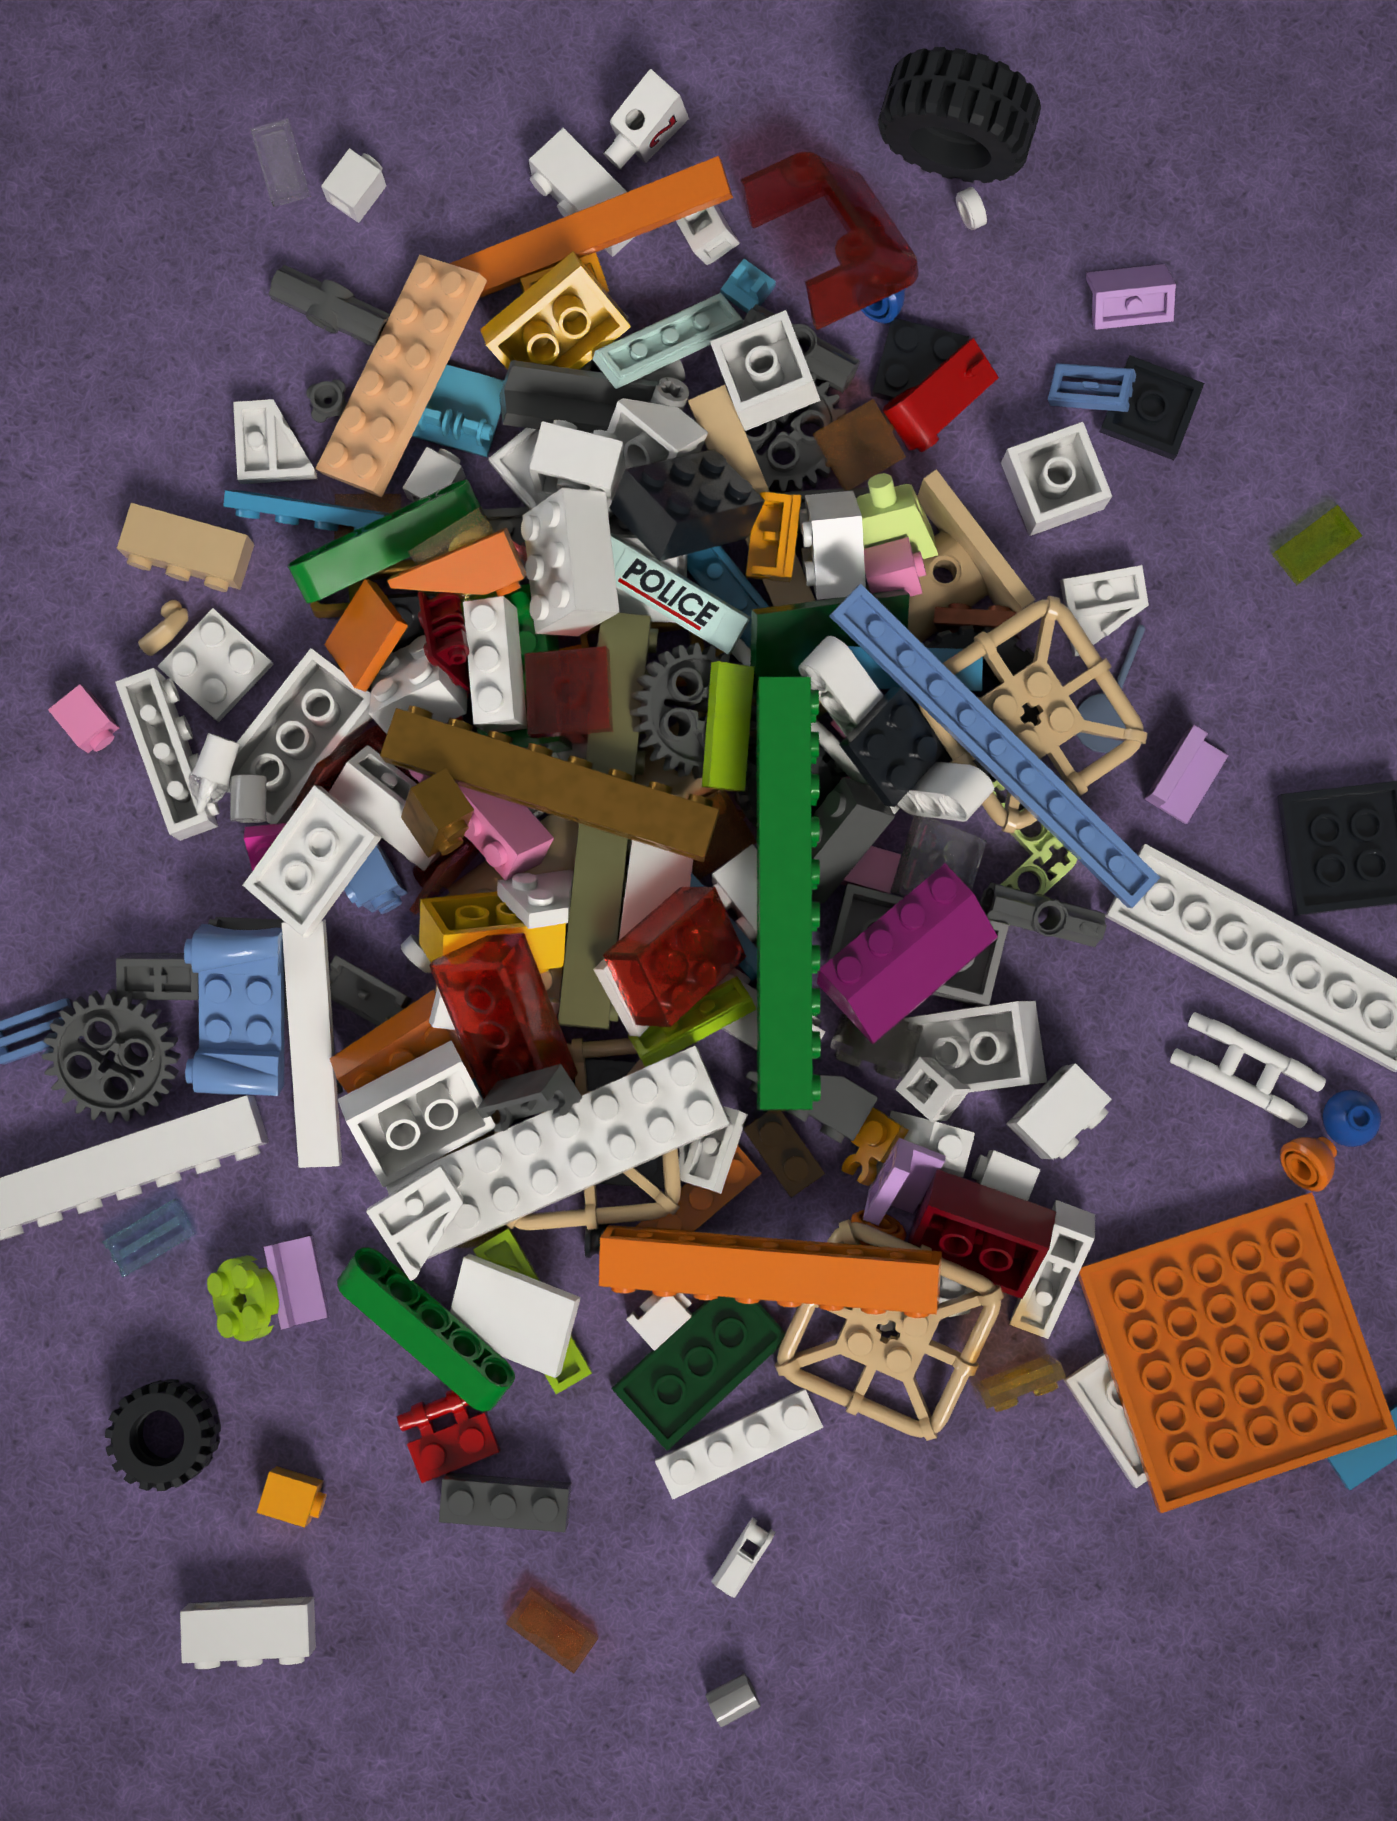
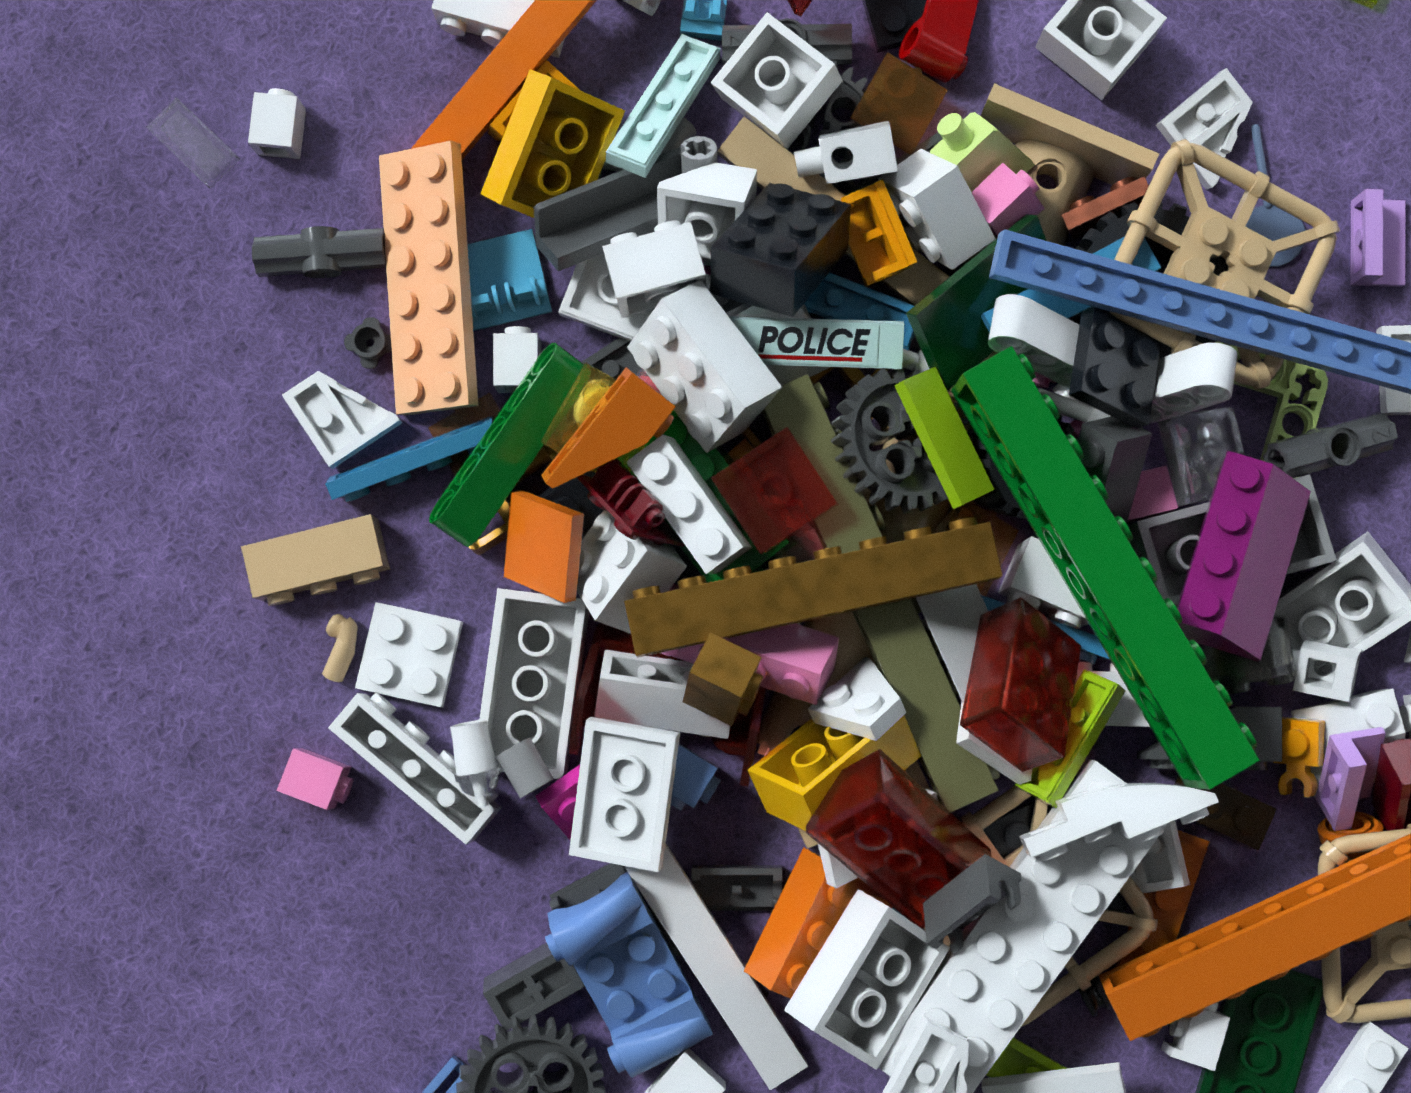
camera: 25 degrees left, 0 degrees up
(415, 953) = (759, 819): white tile -> none
(698, 1094) = (1134, 807): none -> white slope
(806, 465) = (871, 152): none -> white torso

